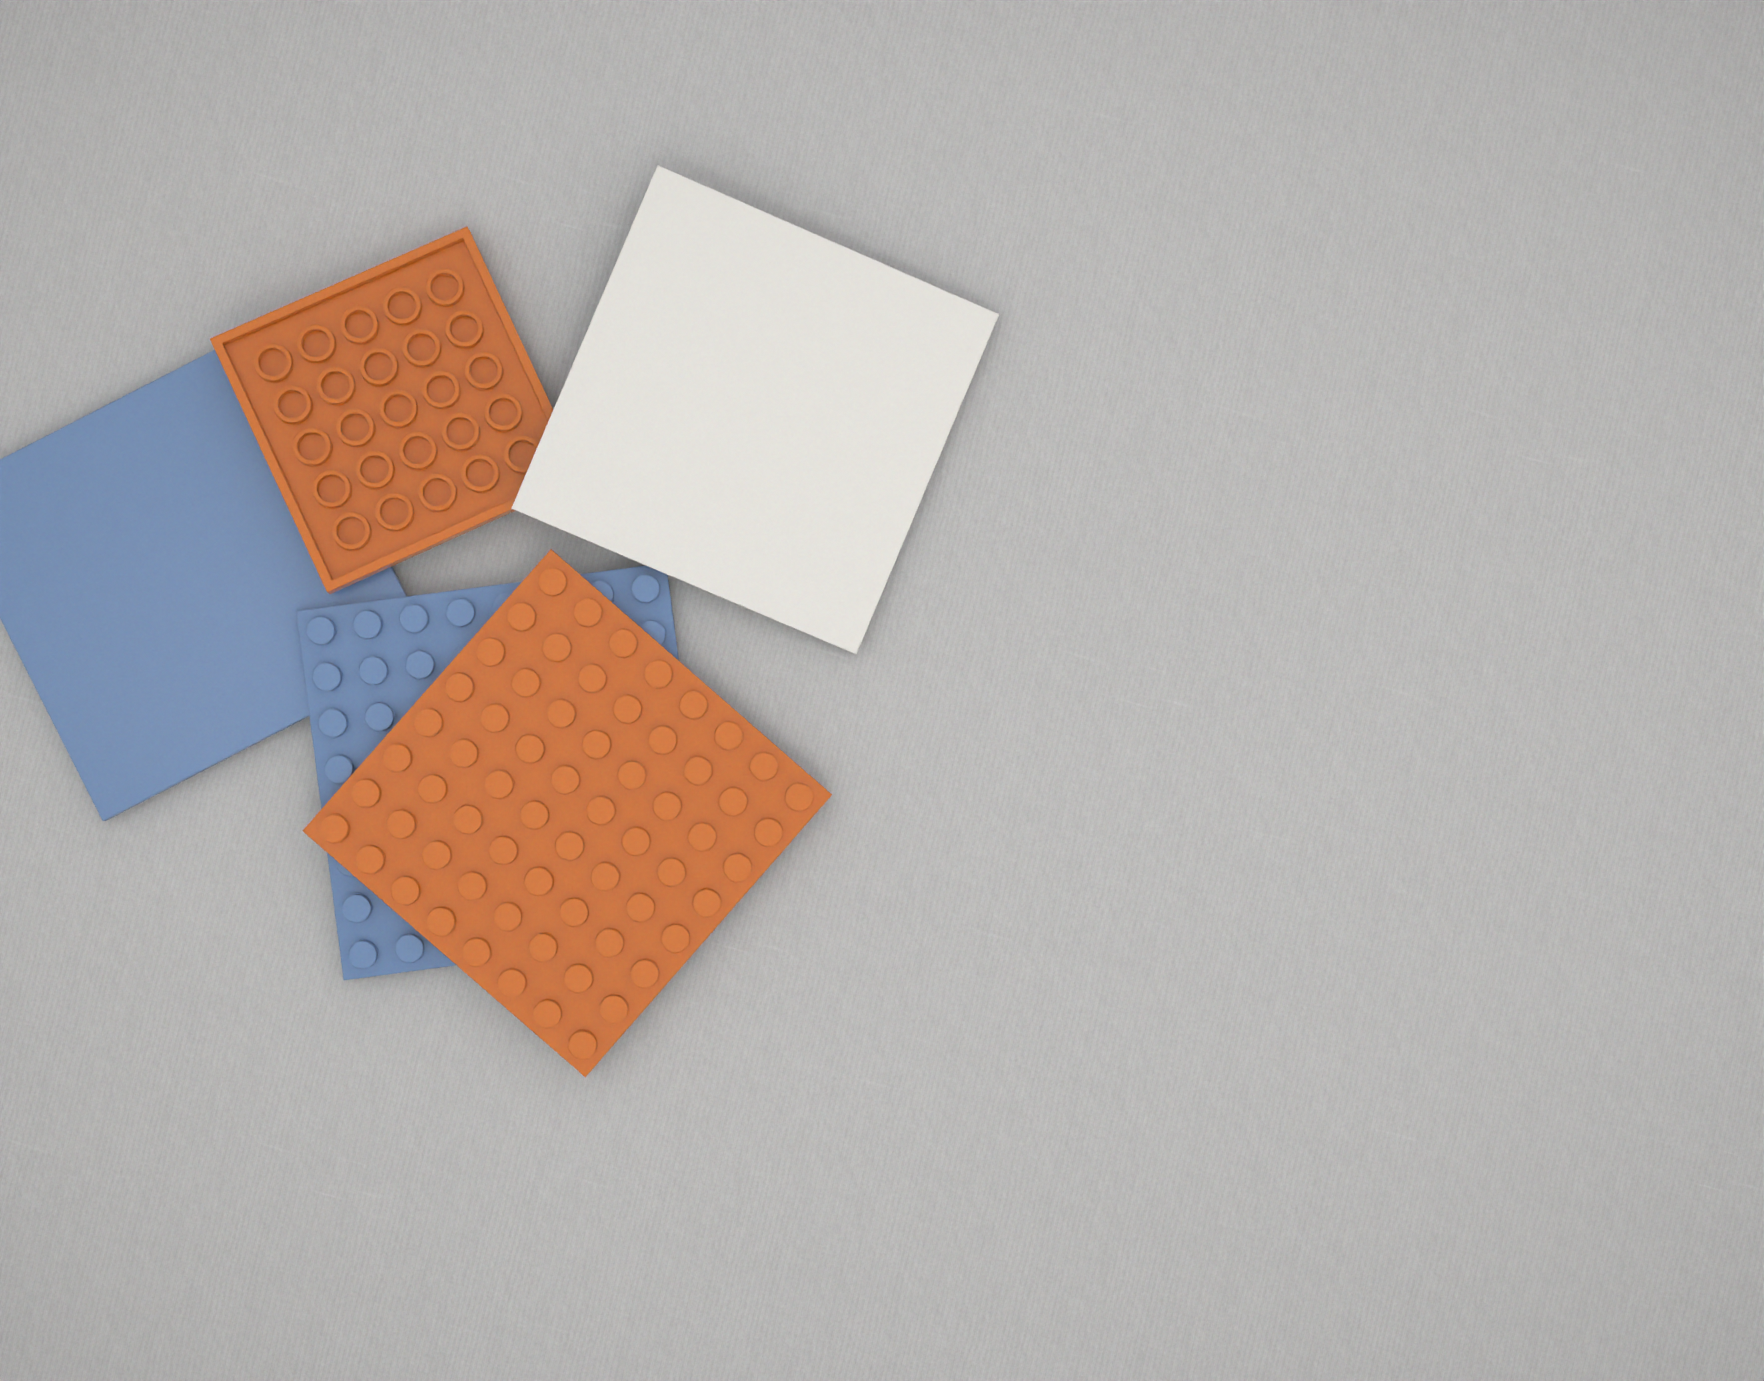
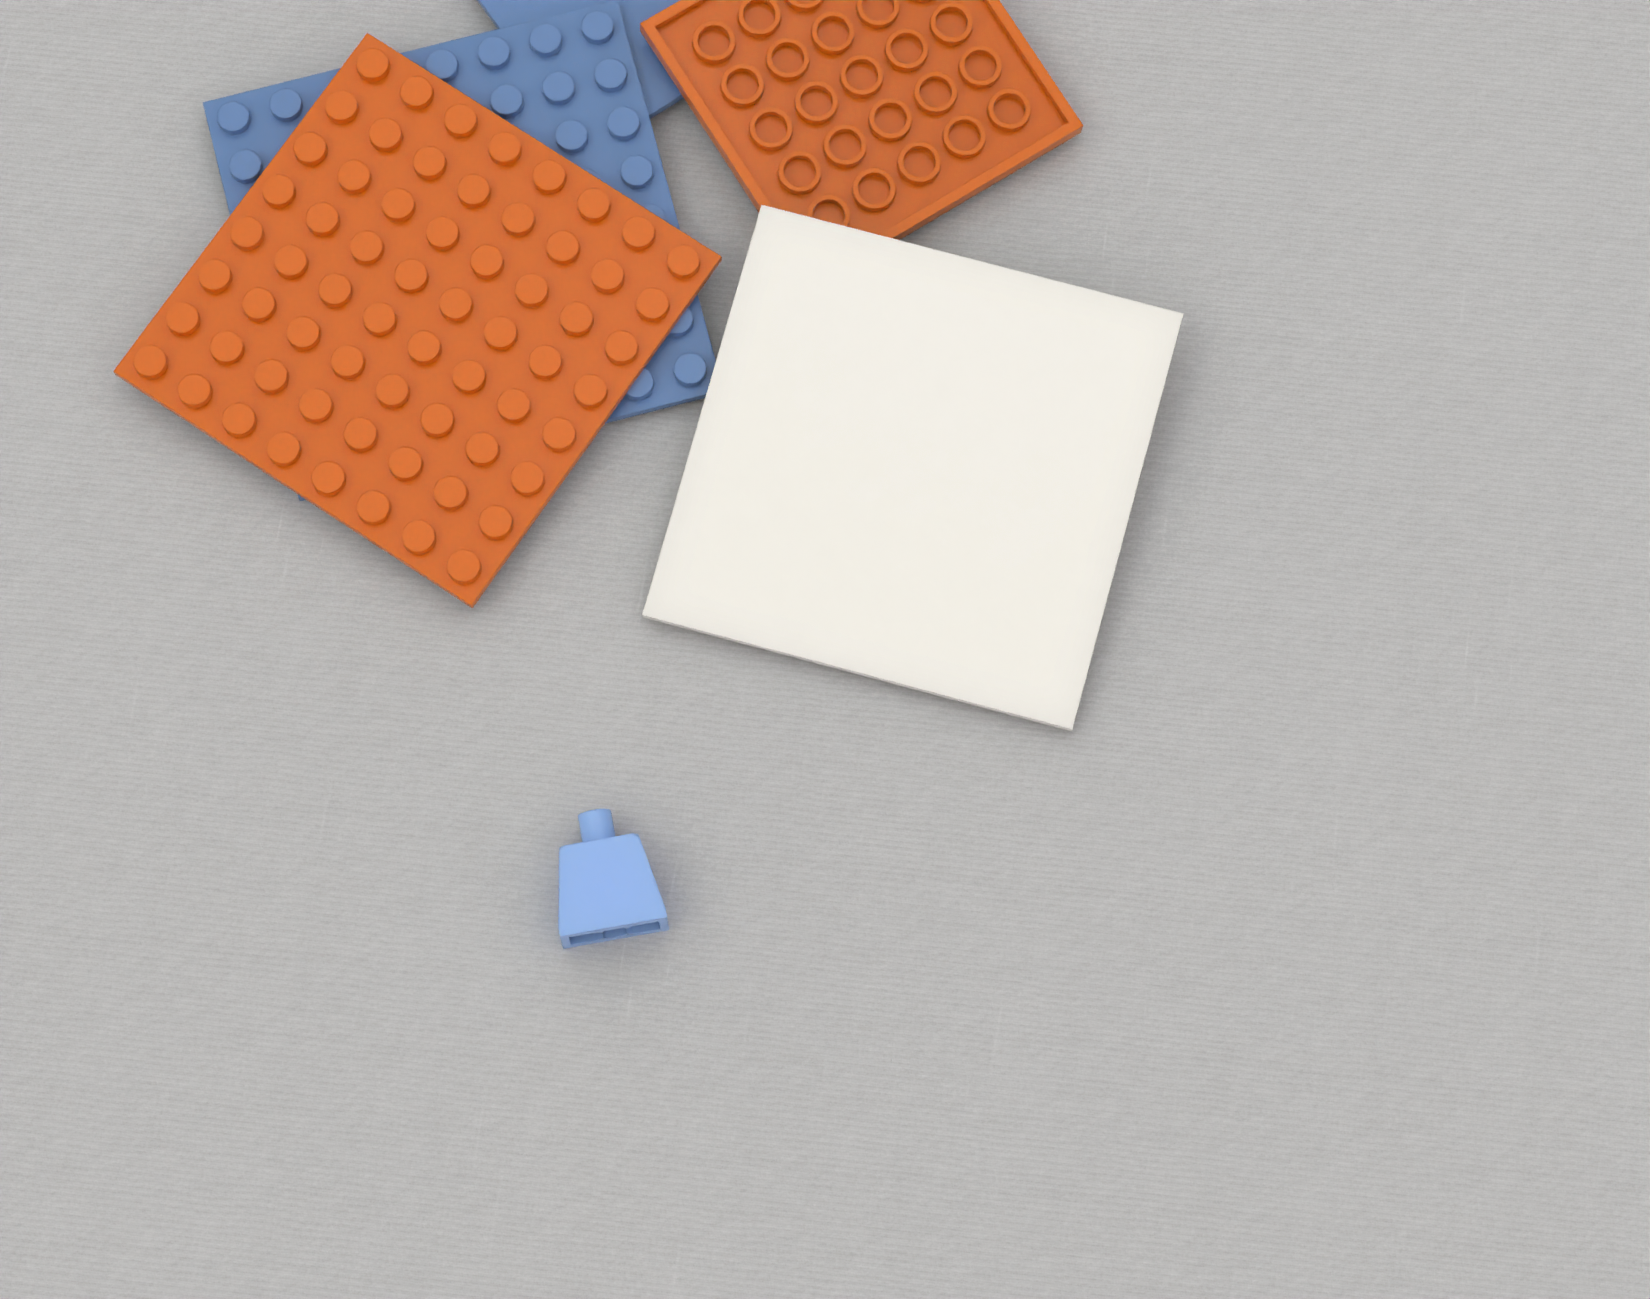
camera: 80 degrees right, 15 degrees down
(1084, 709) = (606, 886): none -> light blue torso

